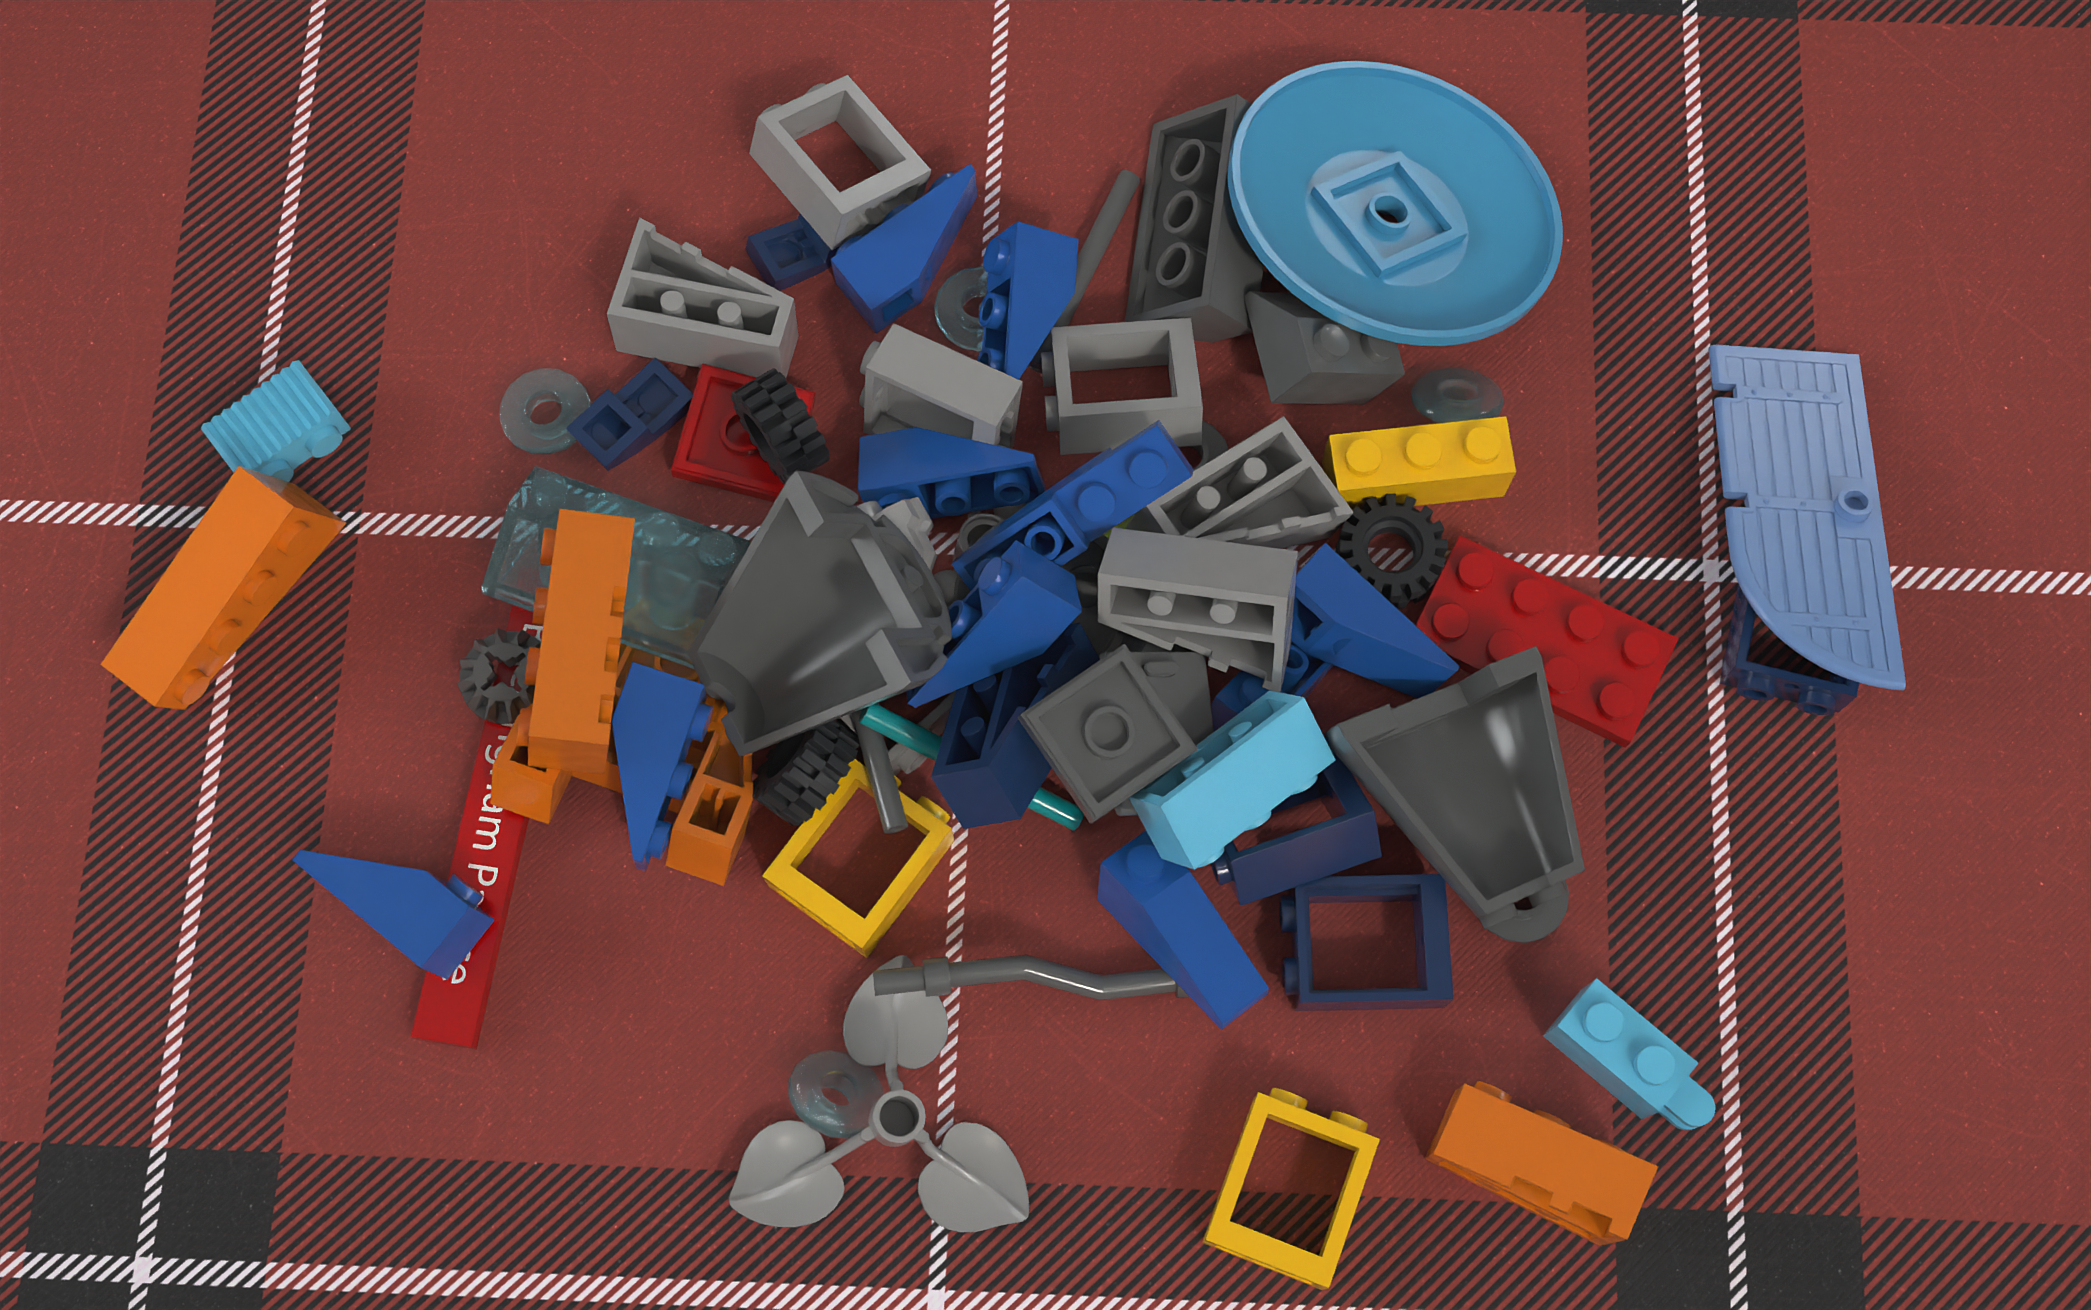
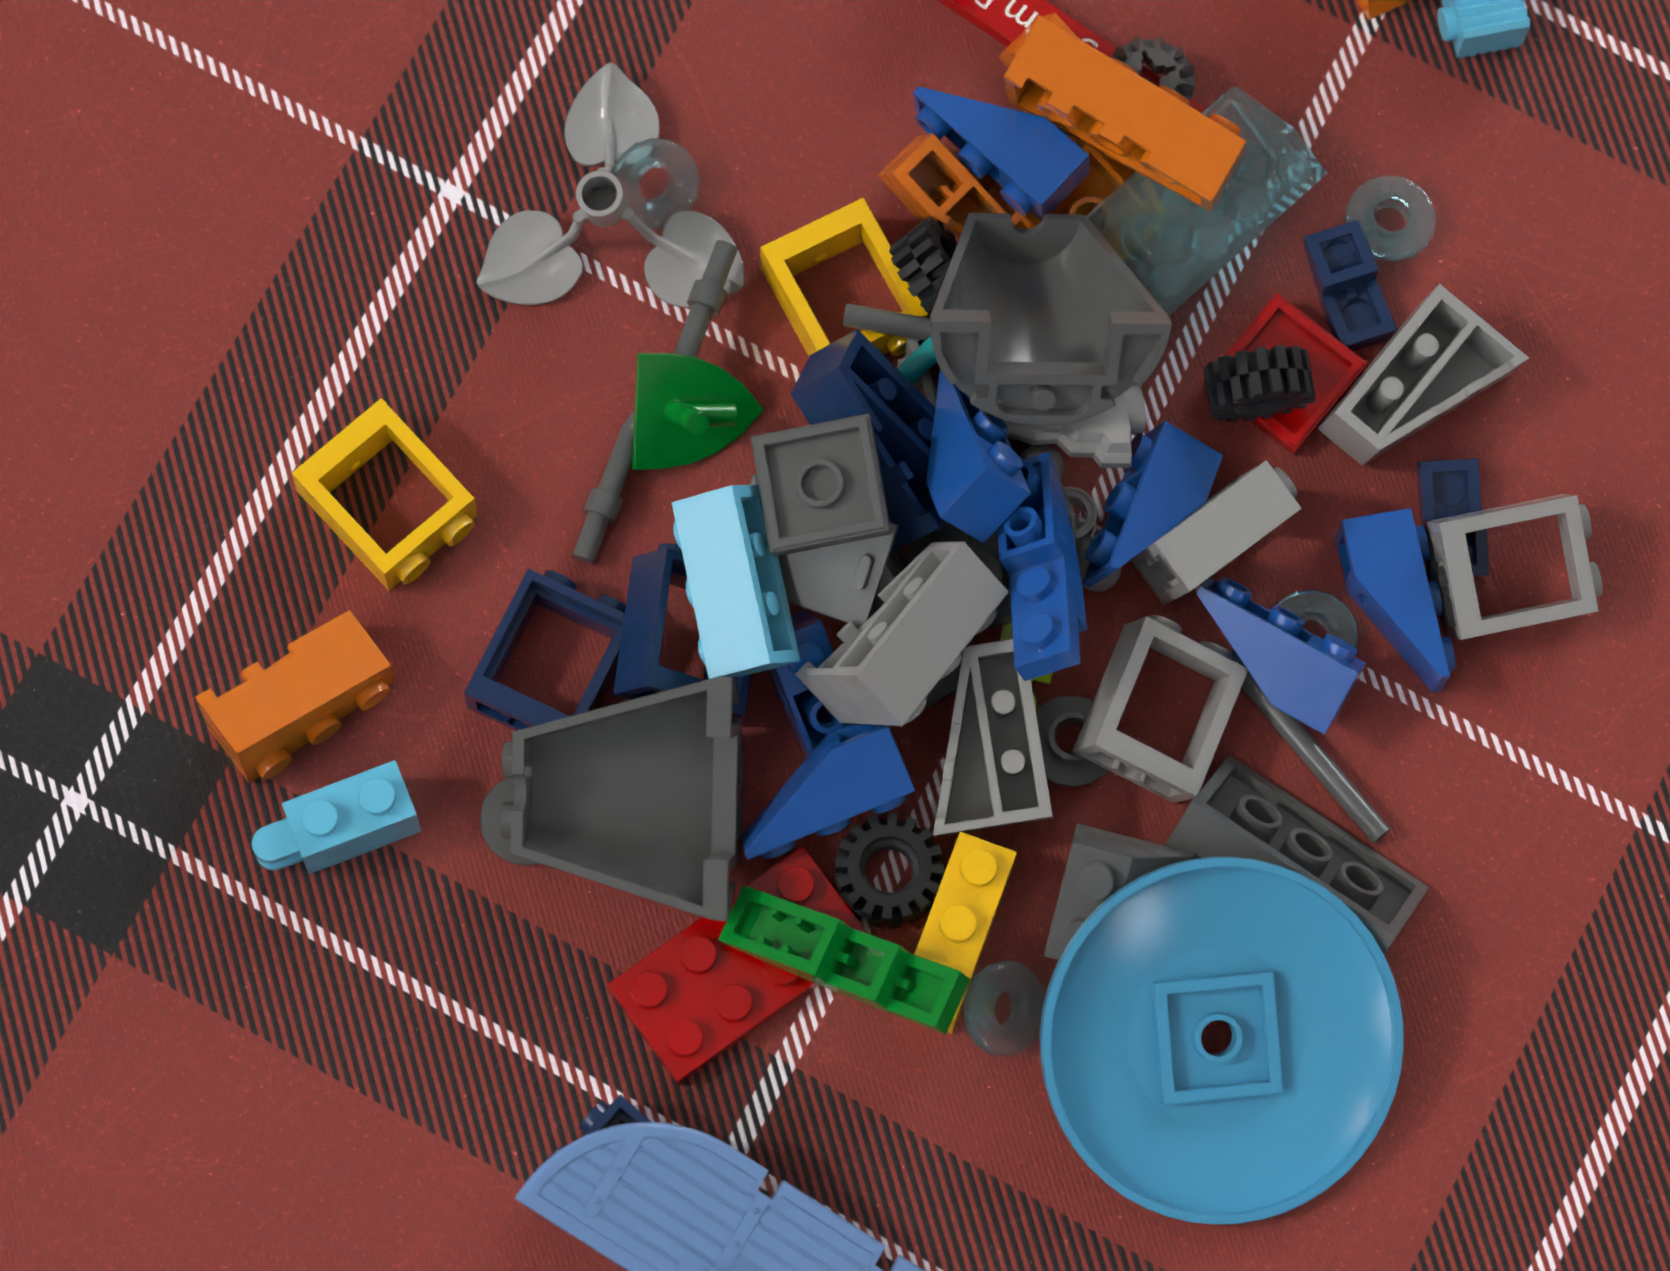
camera: 110 degrees right, 0 degrees up
(1058, 942) = (686, 410): none -> green shield
(1179, 929) = (626, 507): blue slope -> none
(1509, 531) = (844, 959): none -> green slope

